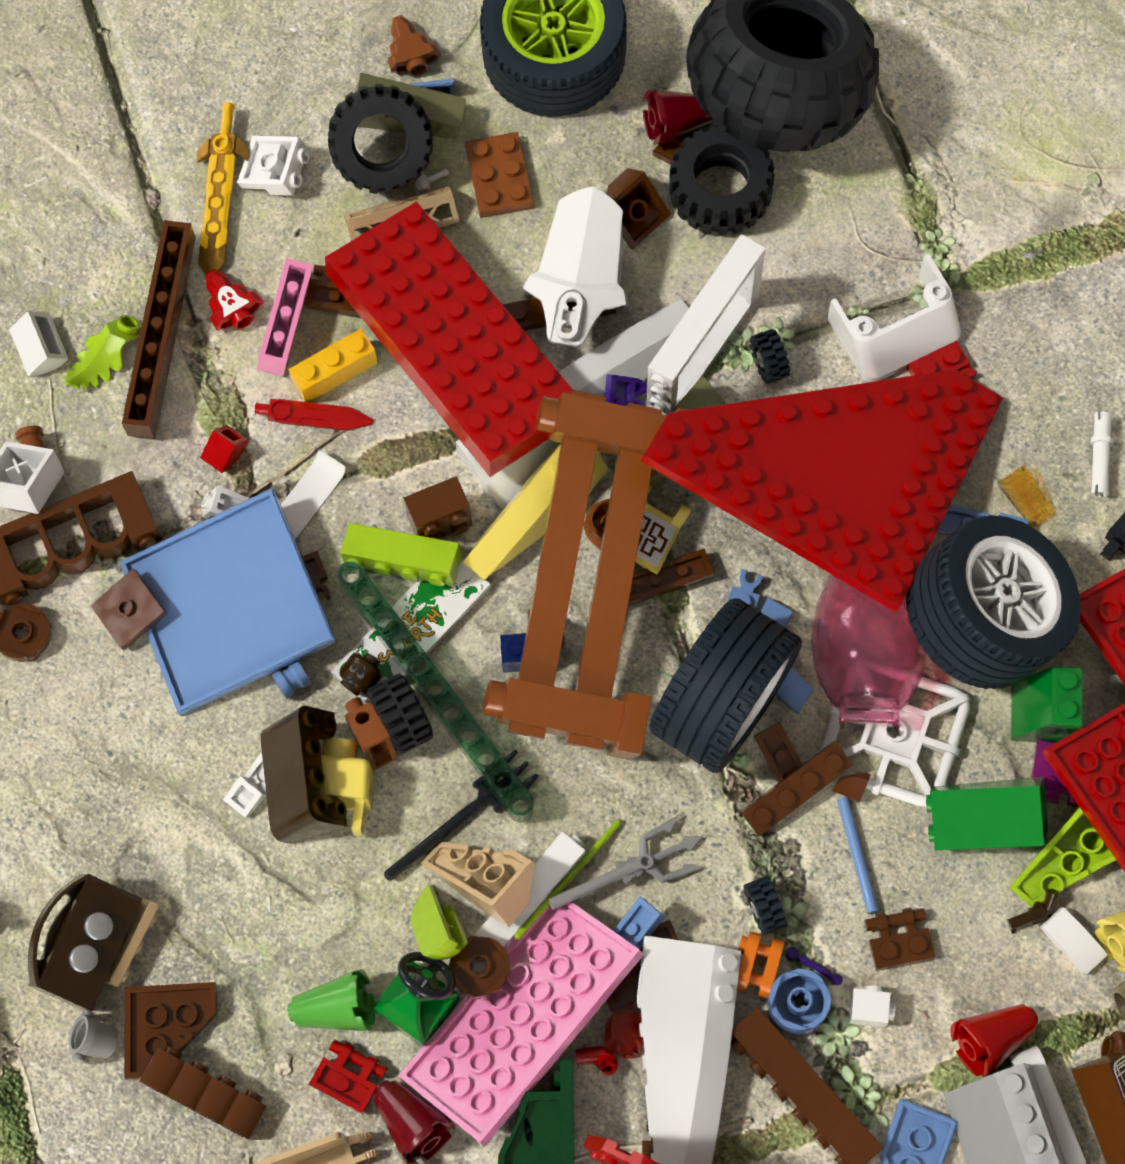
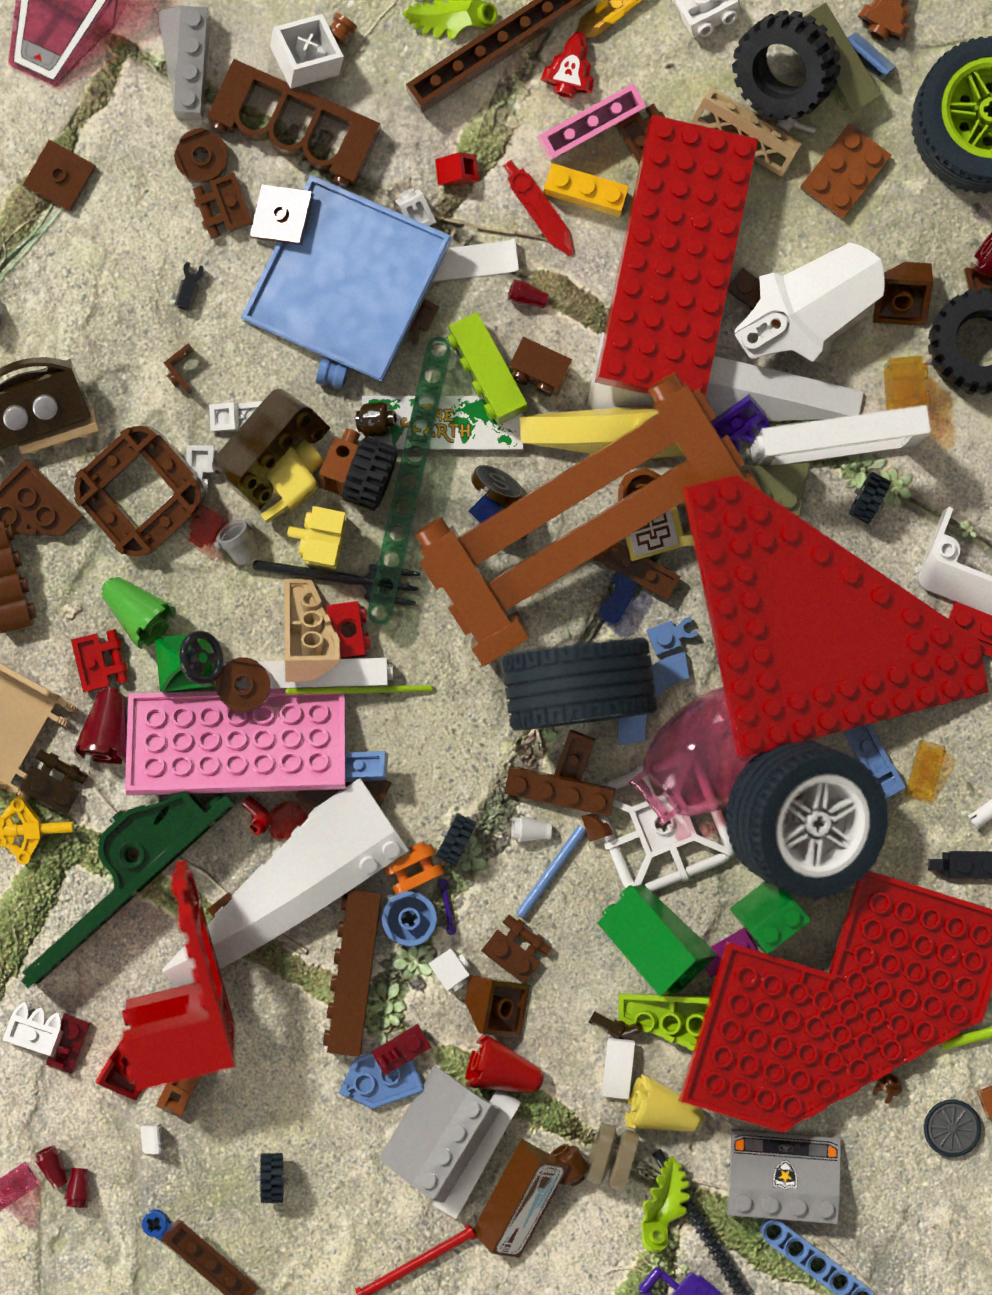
camera: 50 degrees right, 15 degrees up
(81, 642) = (230, 203): none -> reddish brown plate
(115, 734) = (188, 288): none -> black bar
(174, 806) = (173, 376): none -> reddish brown bracket
(195, 915) = (110, 517): none -> reddish brown plate
(262, 846) = (200, 460): none -> white plate
(319, 888) = (205, 527): none -> clear red brick
(355, 871) = (237, 541): none -> light grey piece
(370, 478) = (526, 294): none -> dark red cone
(416, 798) = (322, 537): none -> light yellow brick
(436, 927) = (246, 632): lime brick -> none
(503, 623) = (498, 484): none -> tile
(504, 829) = (349, 613): none -> red brick
(634, 867) = (408, 727): light grey piece -> none
(679, 610) = (613, 608): none -> clear blue leg
(699, 254) = (905, 382): none -> clear yellow brick
(806, 842) = (530, 829): none -> white cone
(906, 1108) = (401, 1049): none -> dark red plate
(934, 994) = (497, 1005): none -> reddish brown slope

